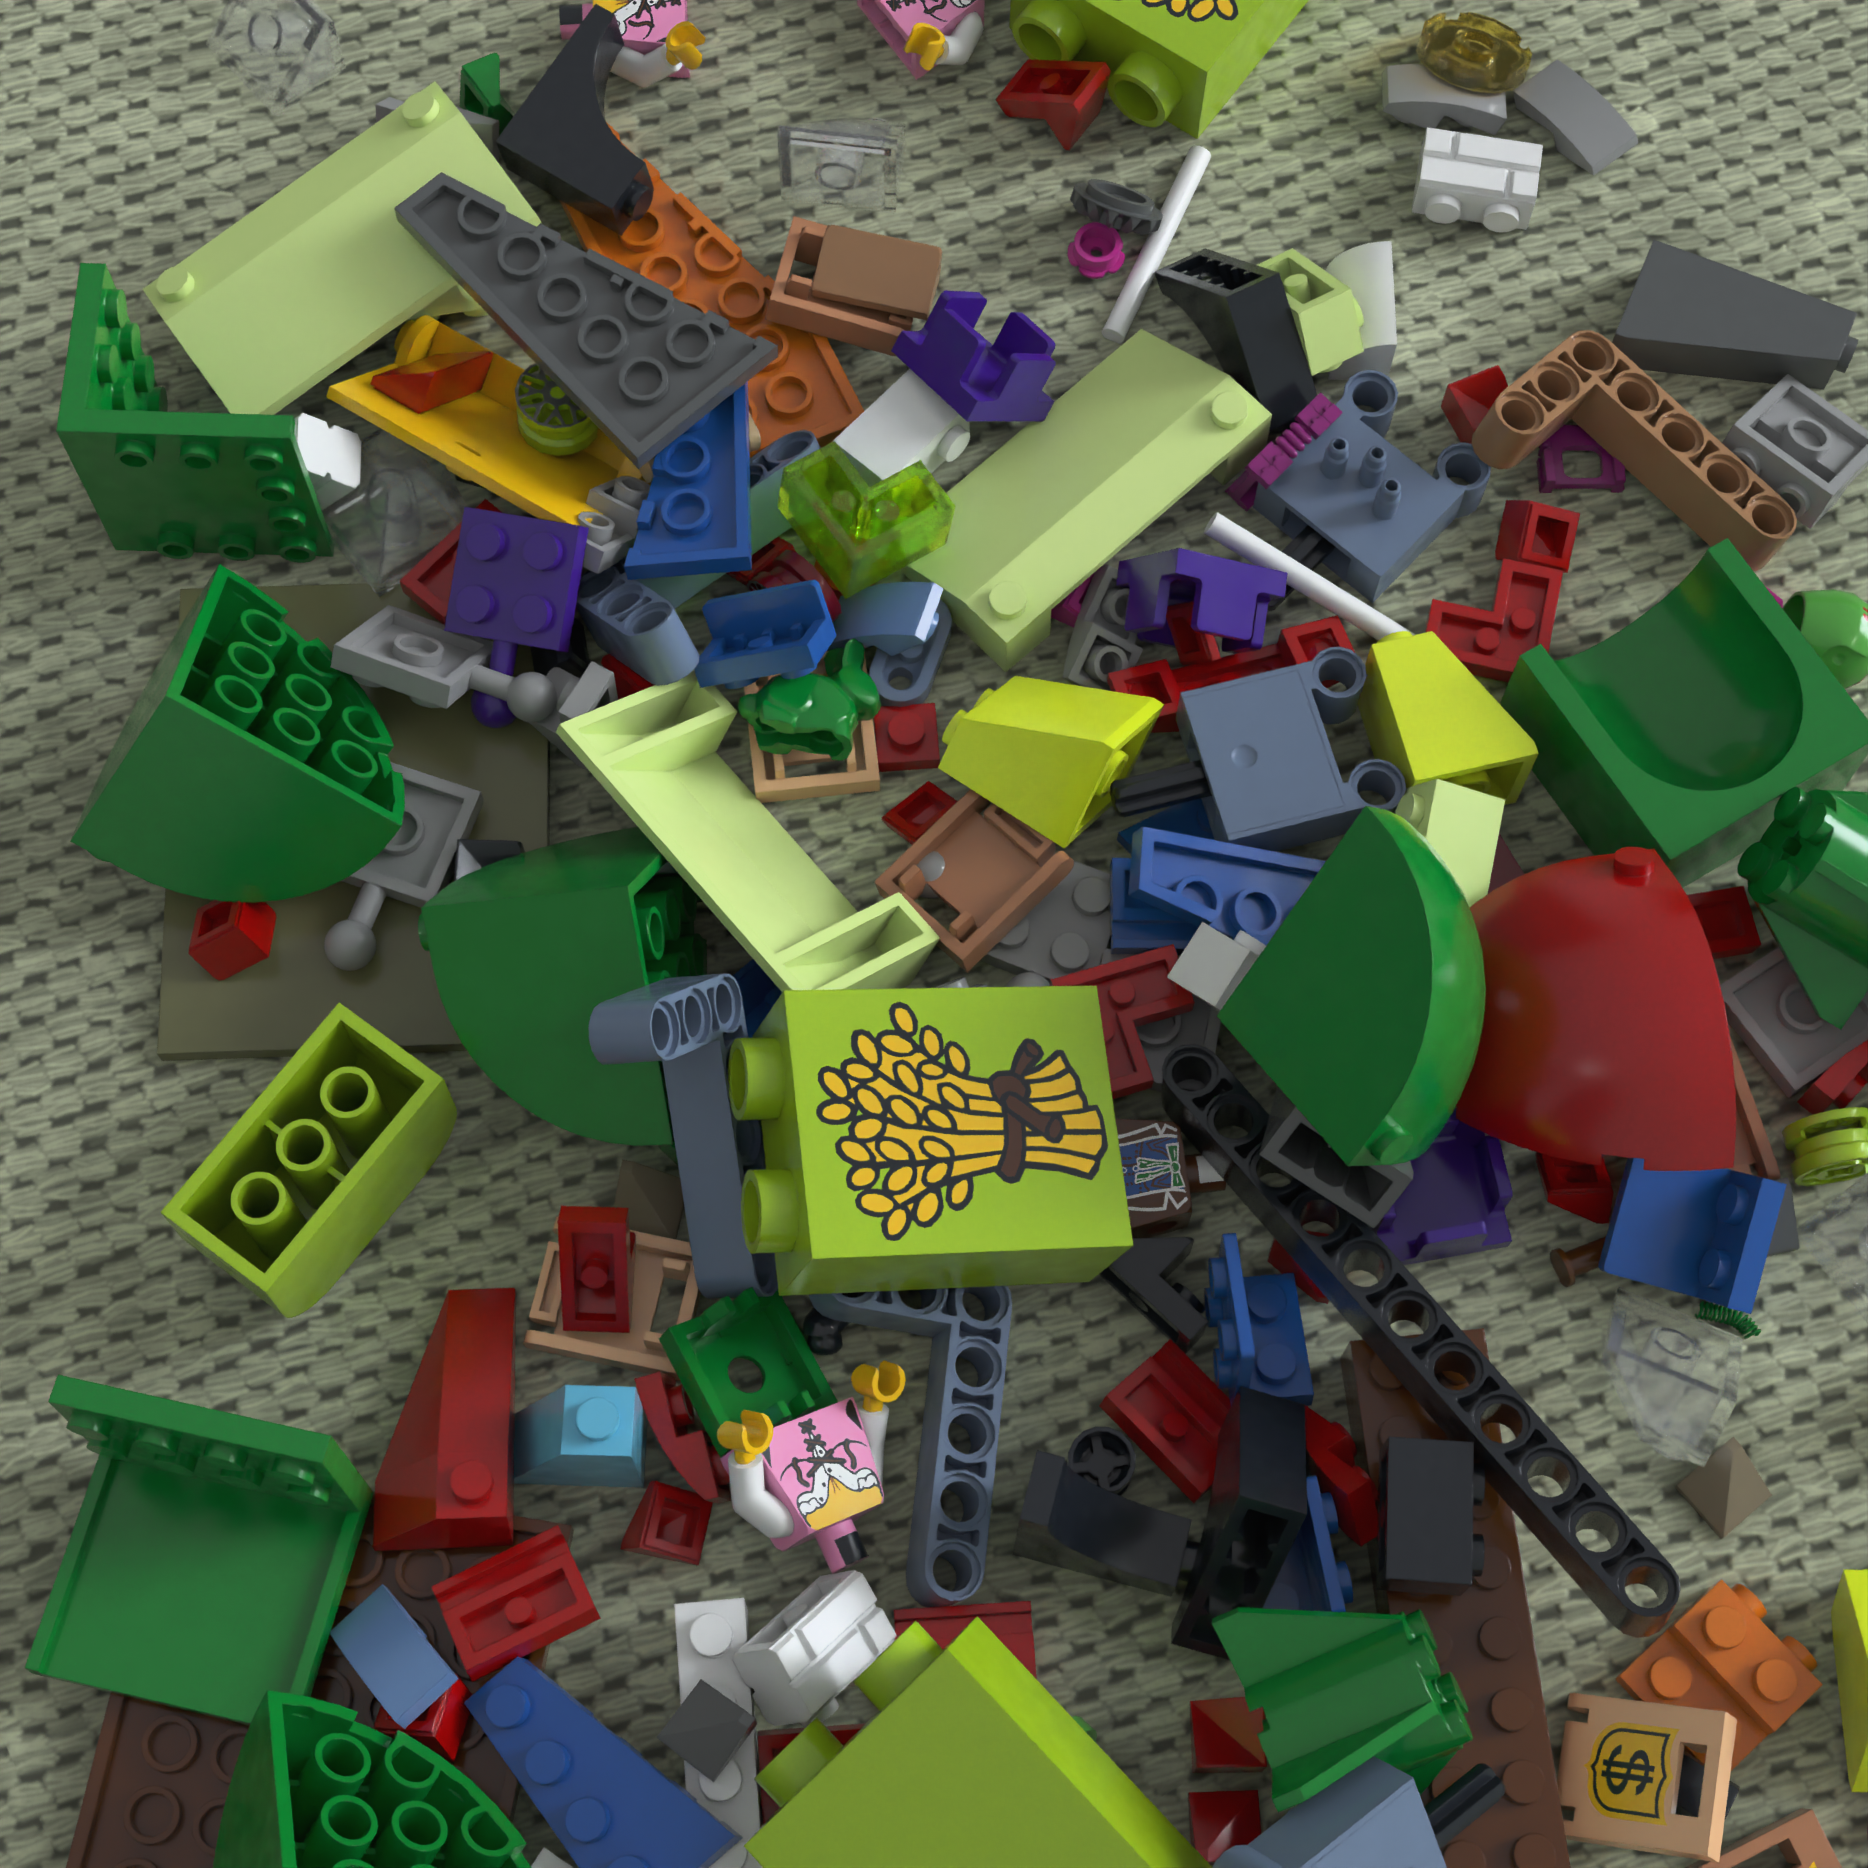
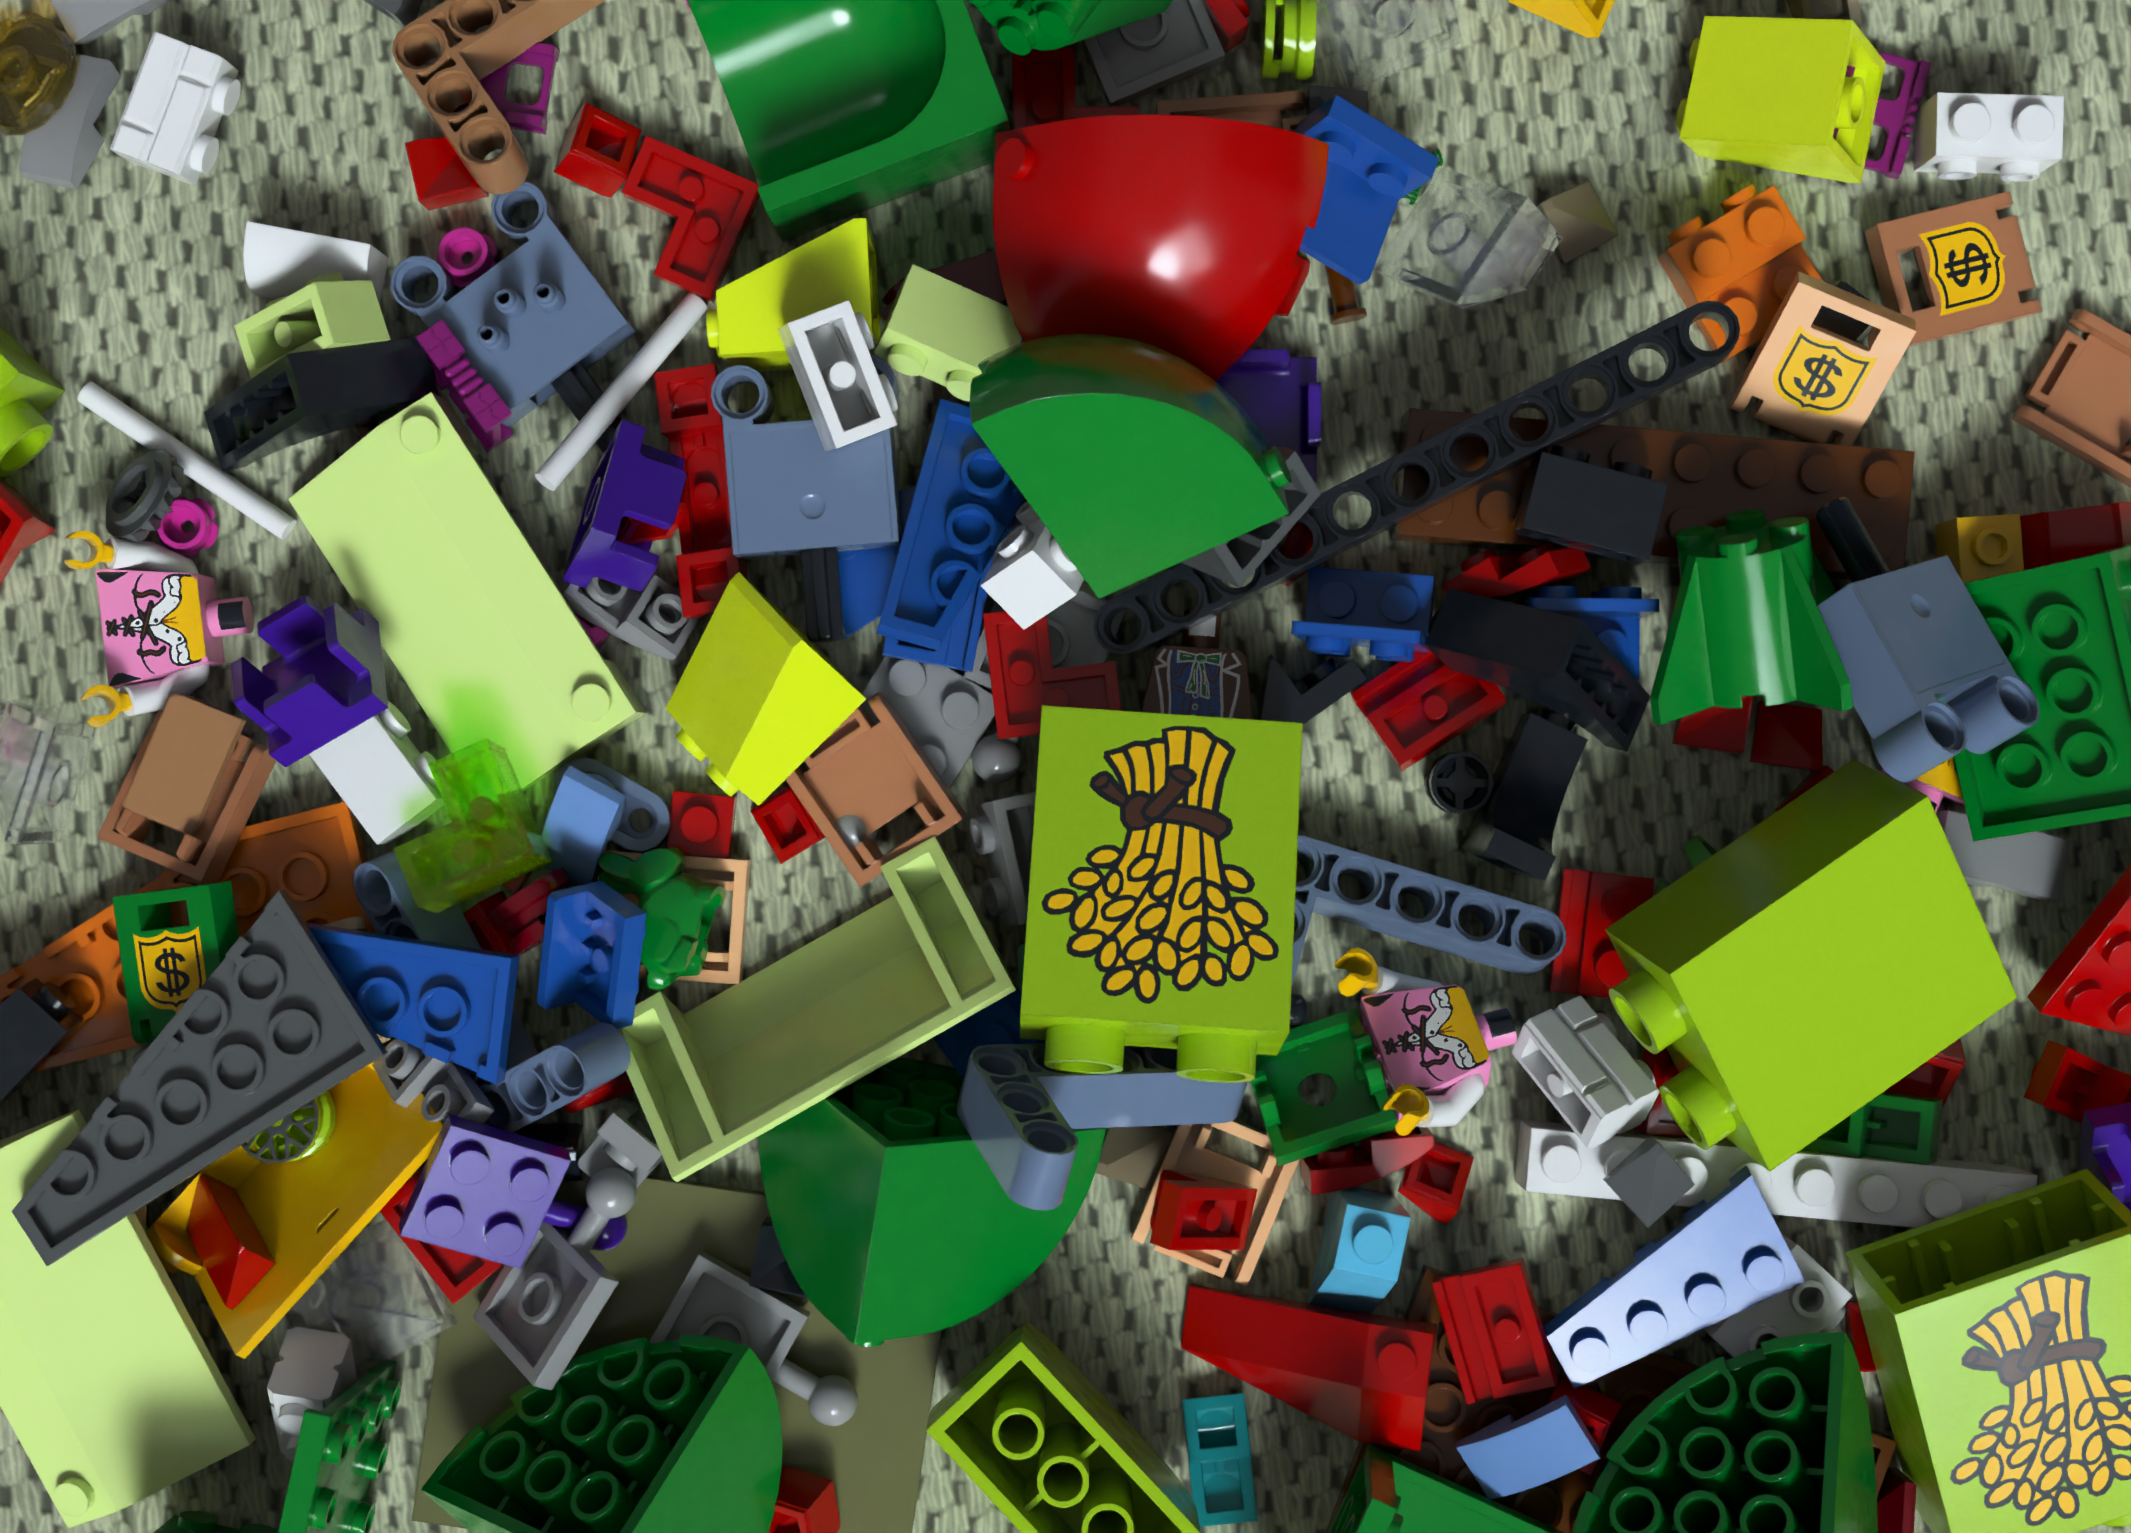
camera: 75 degrees left, 20 degrees up
(334, 1351) = (1220, 1459): none -> teal slope
(712, 280) = (172, 962): none -> green container
(1002, 235) = (156, 624): none -> torso
(1379, 738) = (838, 375): none -> white brick
(1413, 429) = (463, 242): none -> dark pink plate

